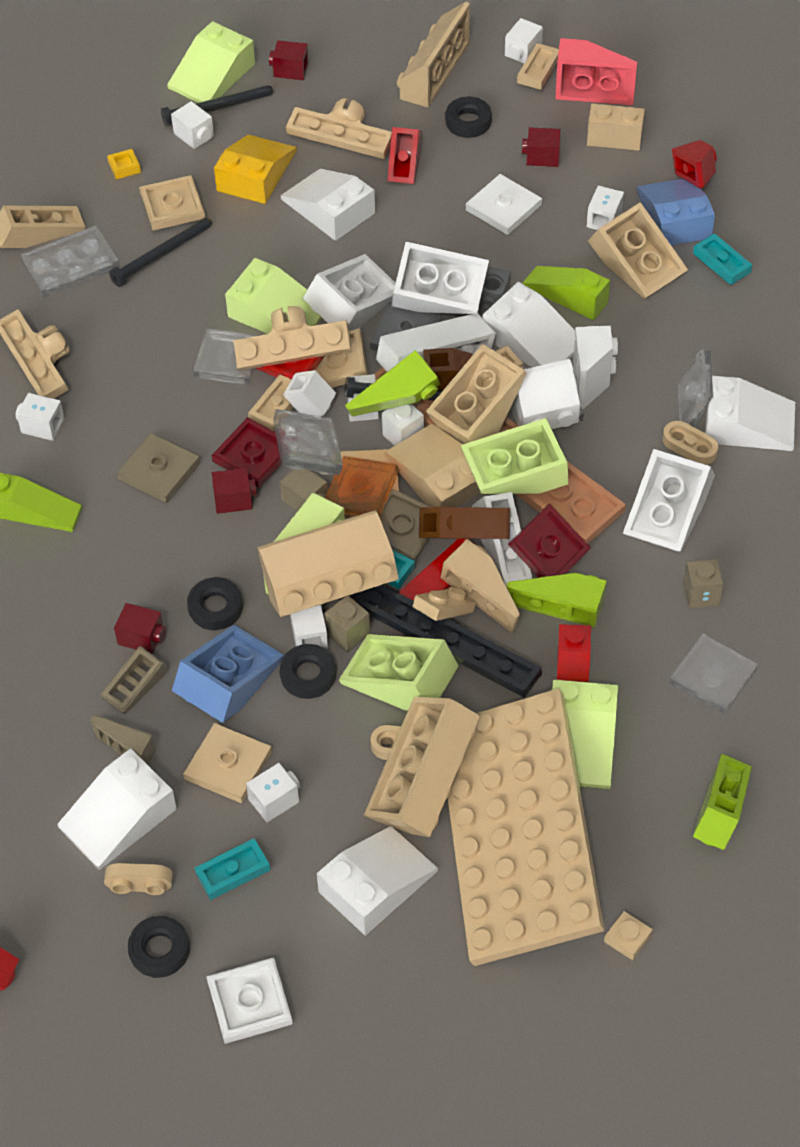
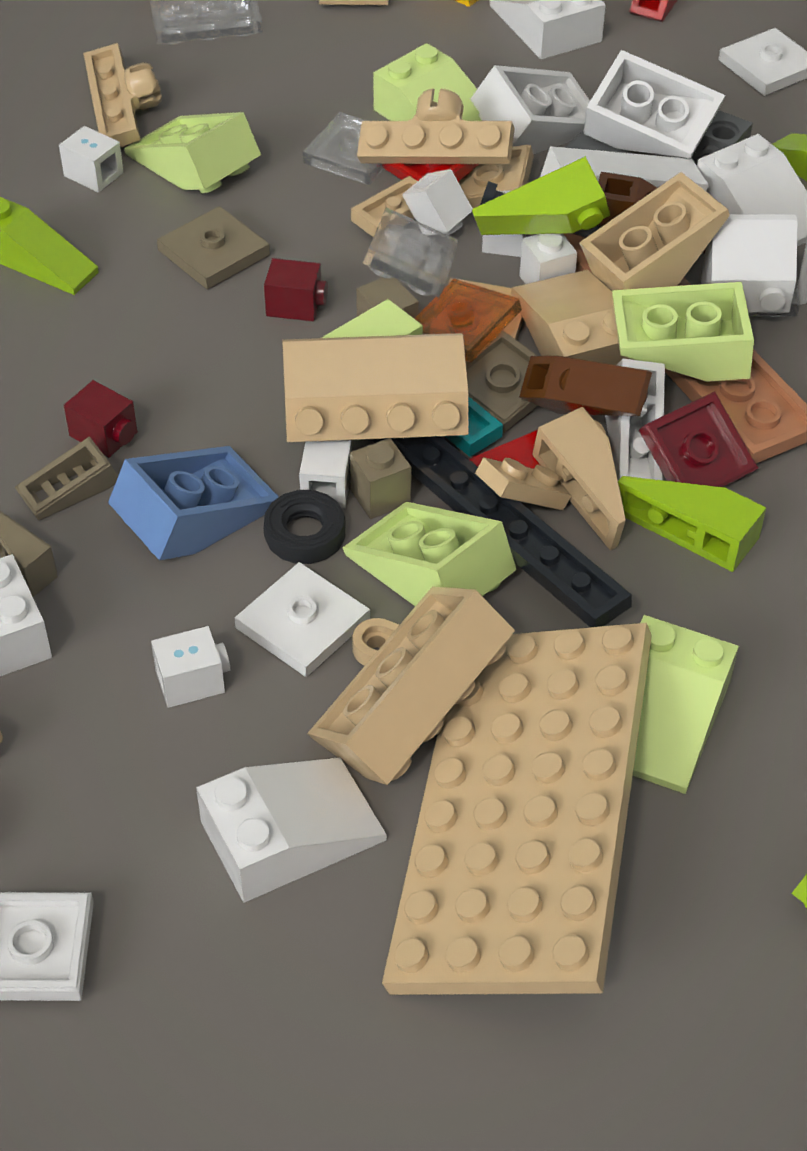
camera: 15 degrees right, 5 degrees down
(114, 388) = (198, 150): none -> yellowish green slope
(119, 275) = (258, 38): black bar -> none
(213, 587) = (210, 396): black tyre -> none
(227, 762) = (144, 608): tan plate -> none
(232, 869) = (87, 754): teal plate -> none
(251, 448) = (339, 249): dark red plate -> none
(331, 737) = (302, 619): none -> white plate
(573, 653) = (689, 588): red slope -> none
(628, 935) = (645, 1016): tan plate -> none

